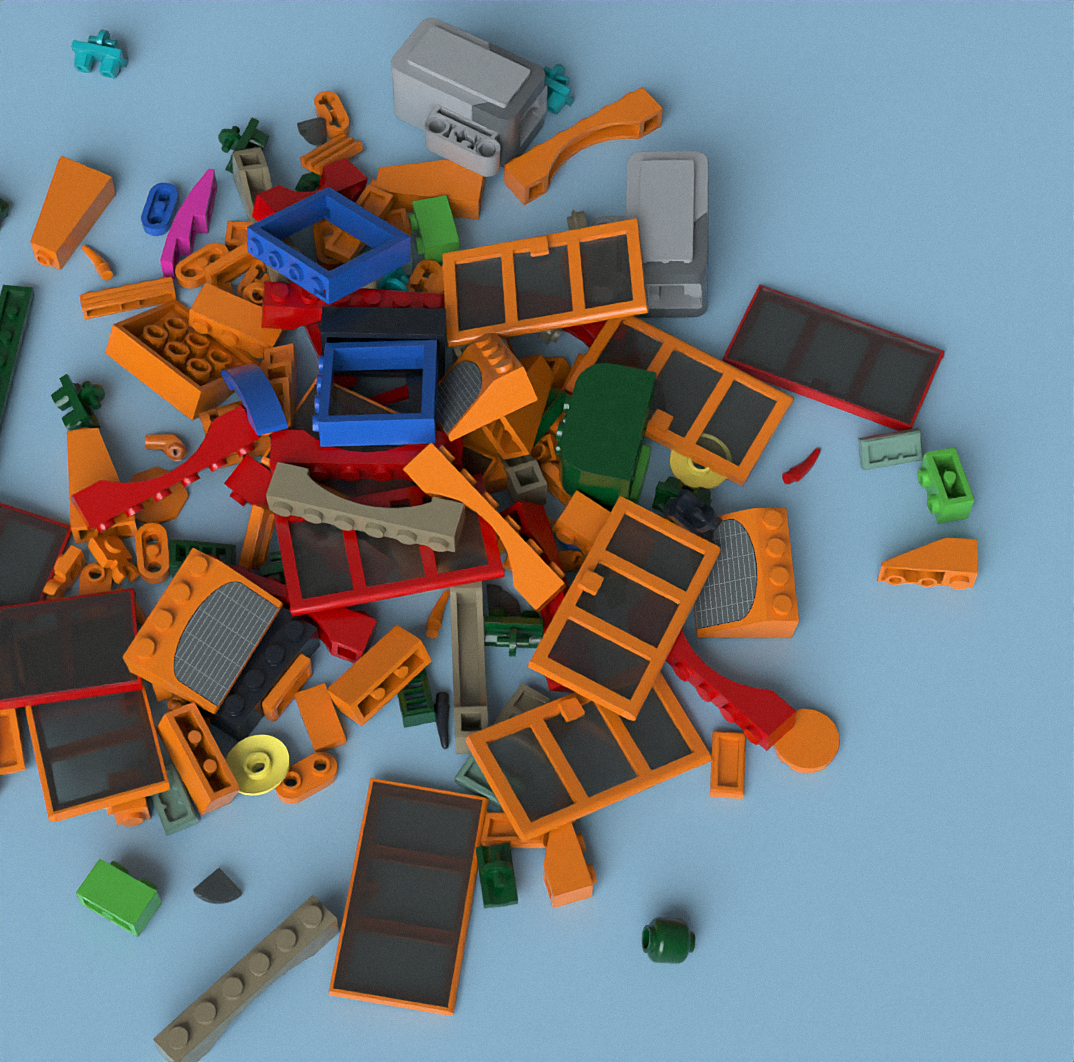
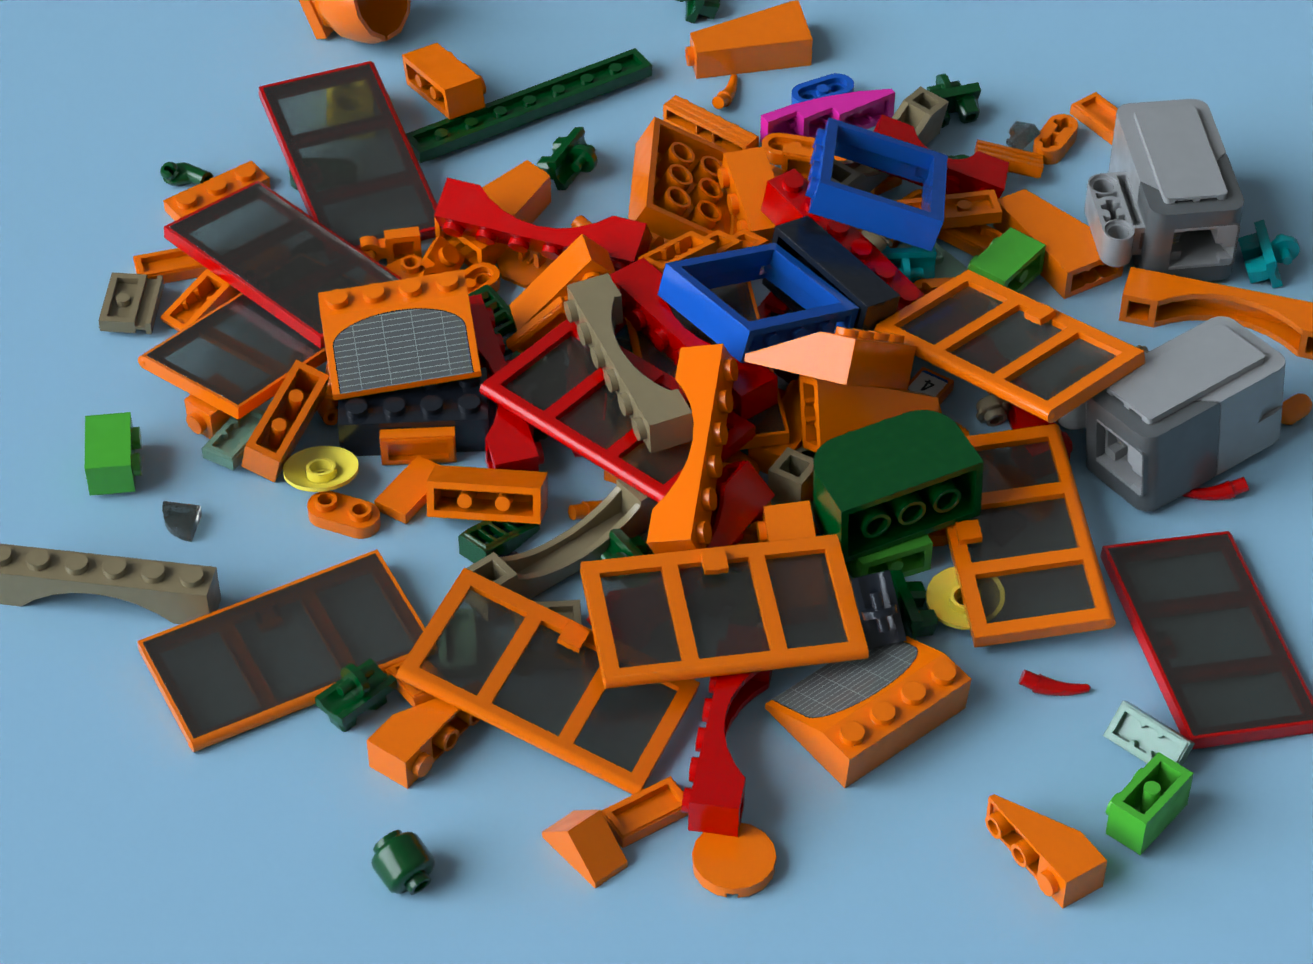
camera: 55 degrees right, 15 degrees down
(236, 489) = (577, 263): none -> orange brick
(257, 396) = (659, 232): blue slope -> none
(338, 75) = (1096, 114): none -> orange tile
(720, 262) = (1219, 492): none -> red helmet
(728, 818) = (587, 845): none -> orange slope

